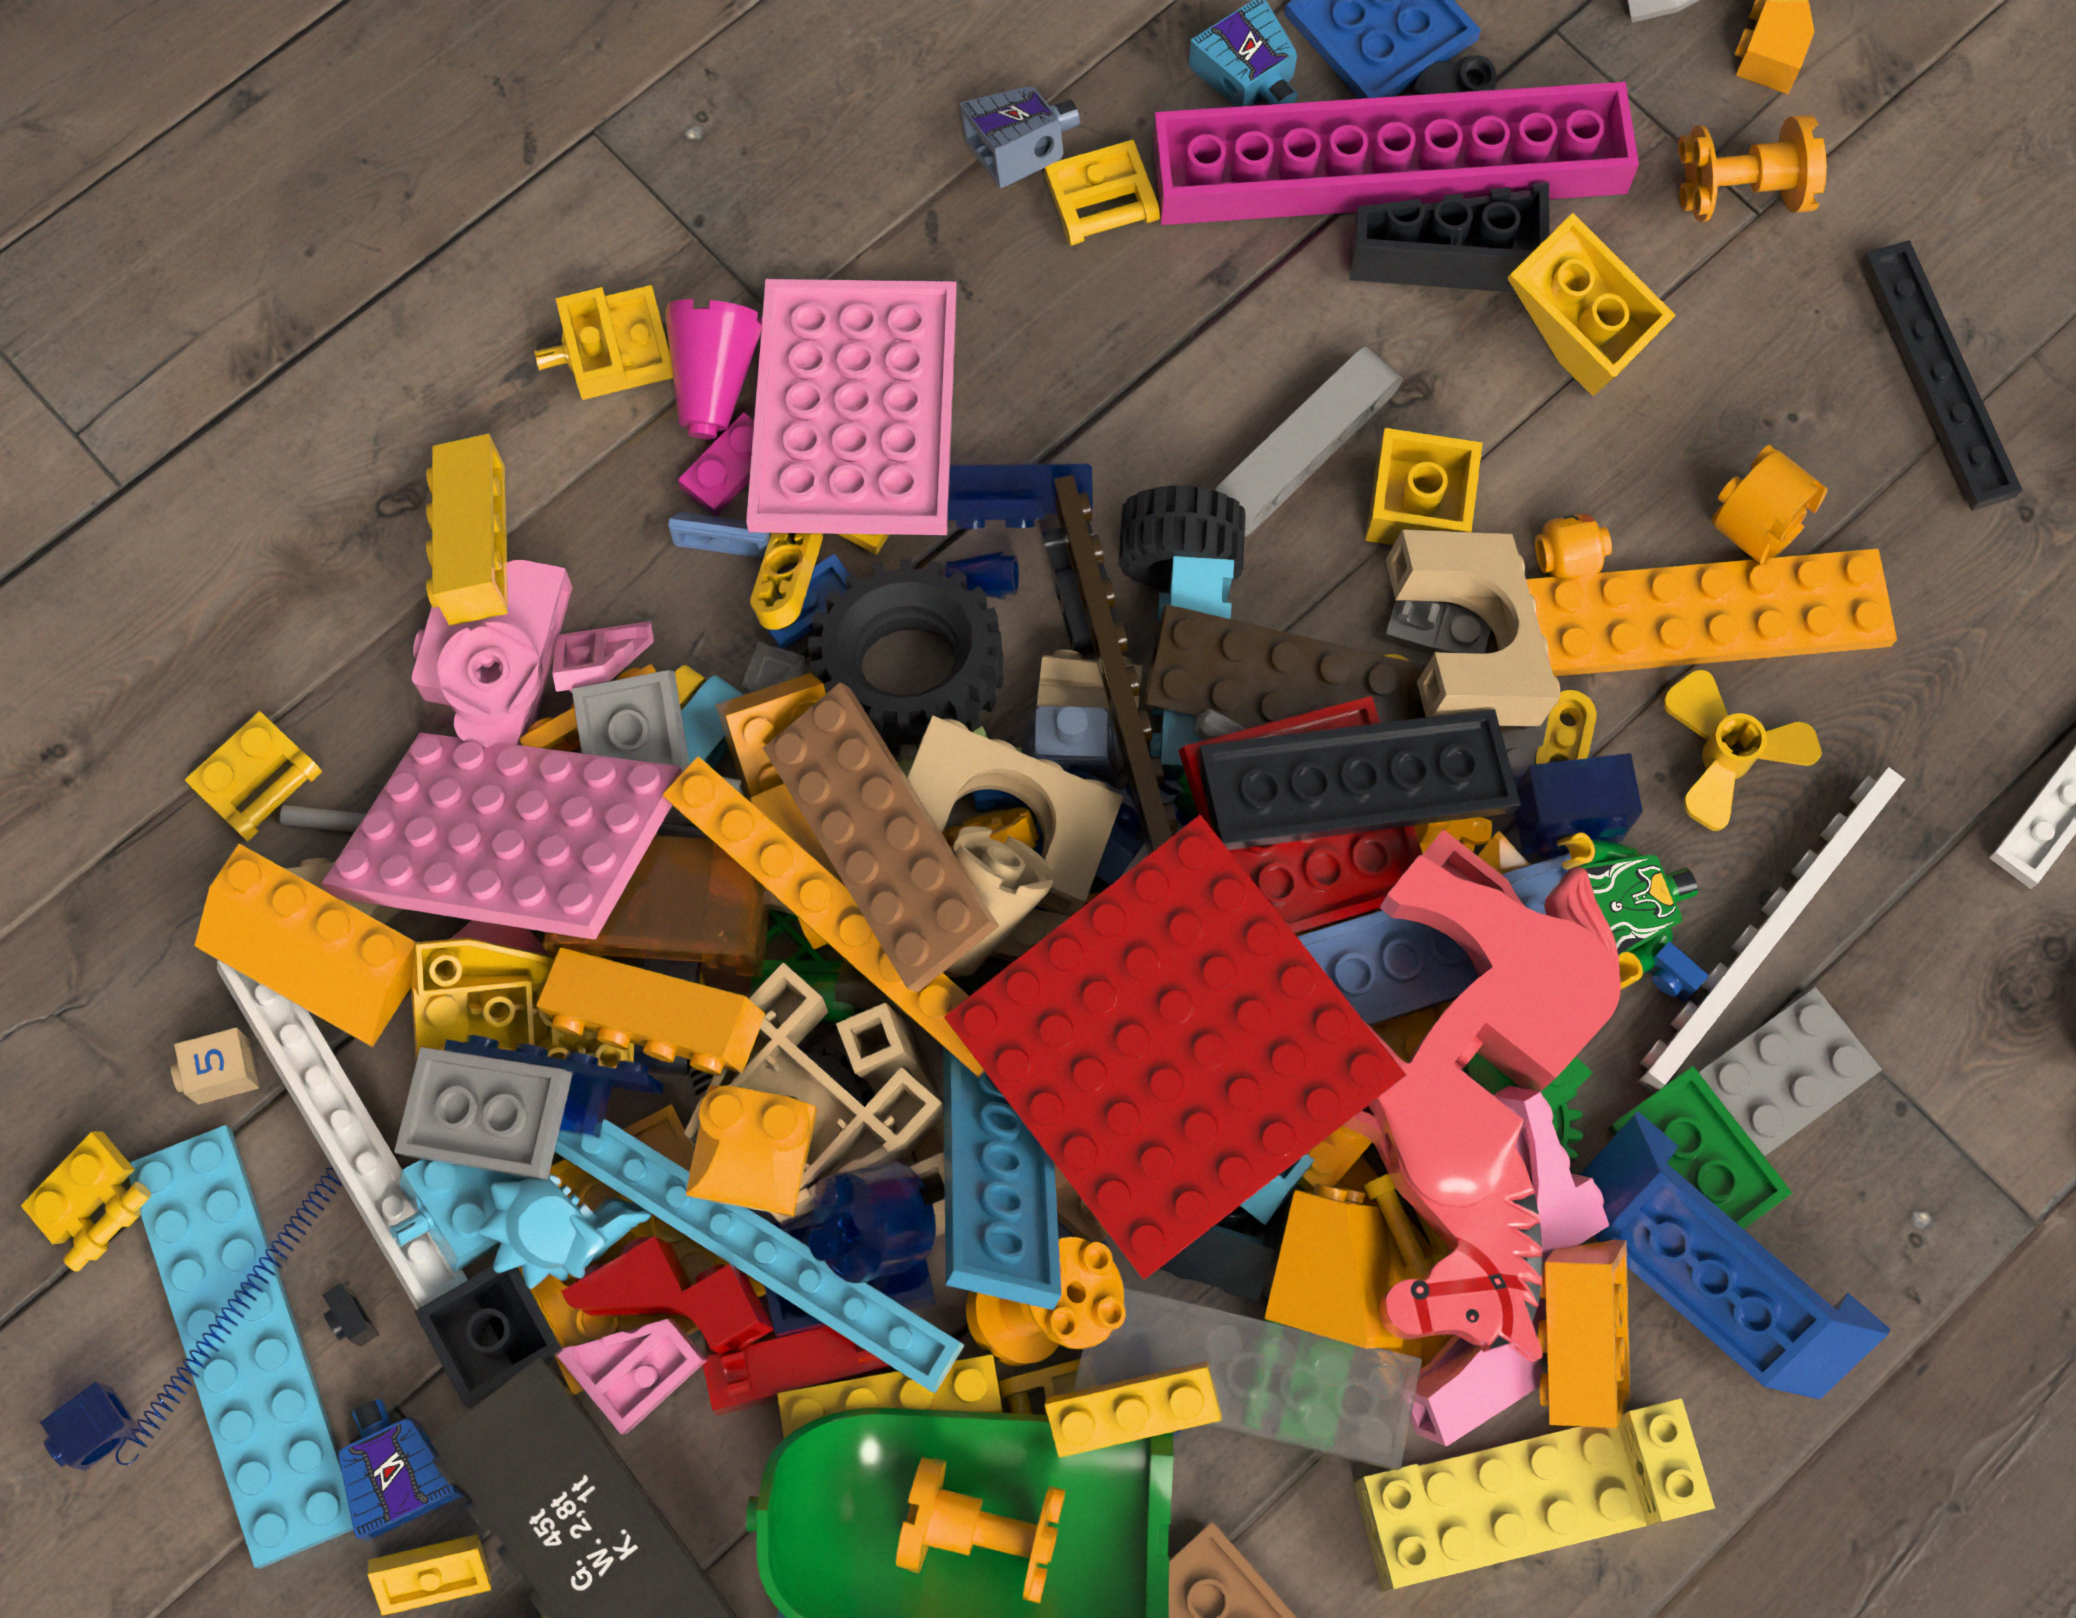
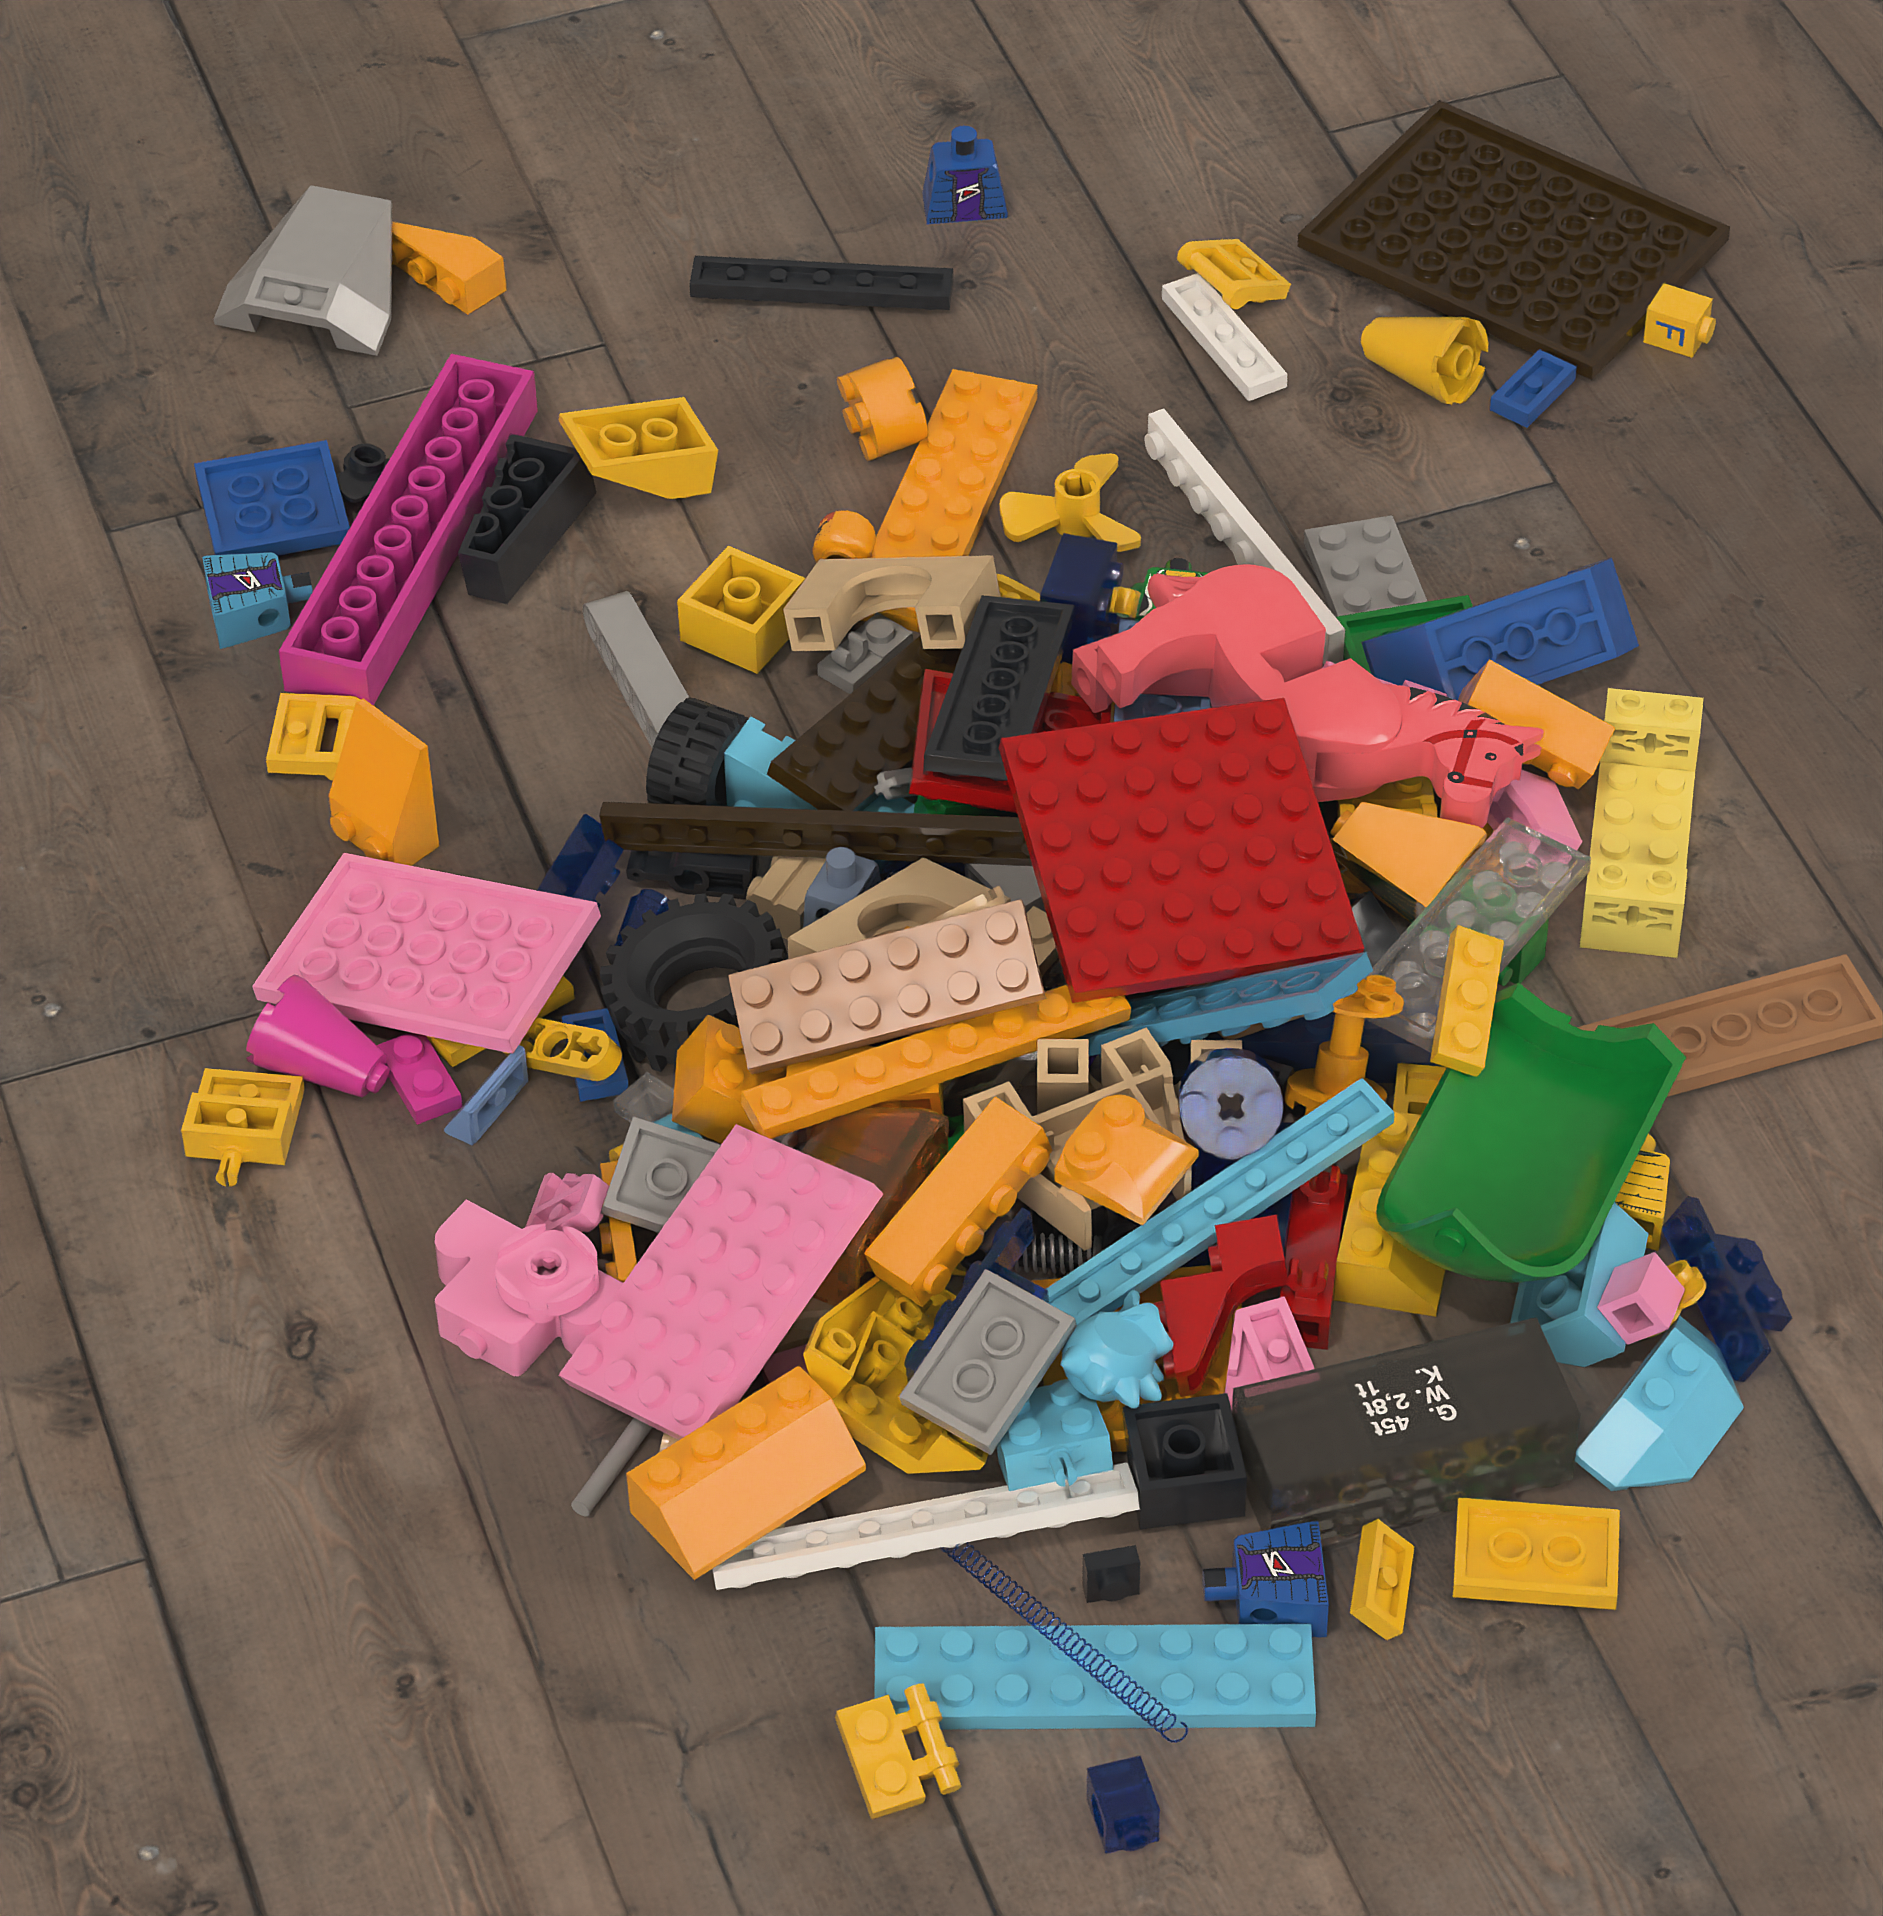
camera: 65 degrees left, 25 degrees down
(215, 1066) = (814, 1615): tan brick -> none
(243, 766) = (512, 1528): yellow plate -> none
(467, 530) = (386, 1252): yellow brick -> none
(957, 1523) = (1501, 1157): light orange piece -> none
(1016, 132) = (221, 766): sand blue torso -> none
(1018, 285) = (384, 790): none -> light orange slope
(1791, 165) = (587, 293): light orange piece -> none

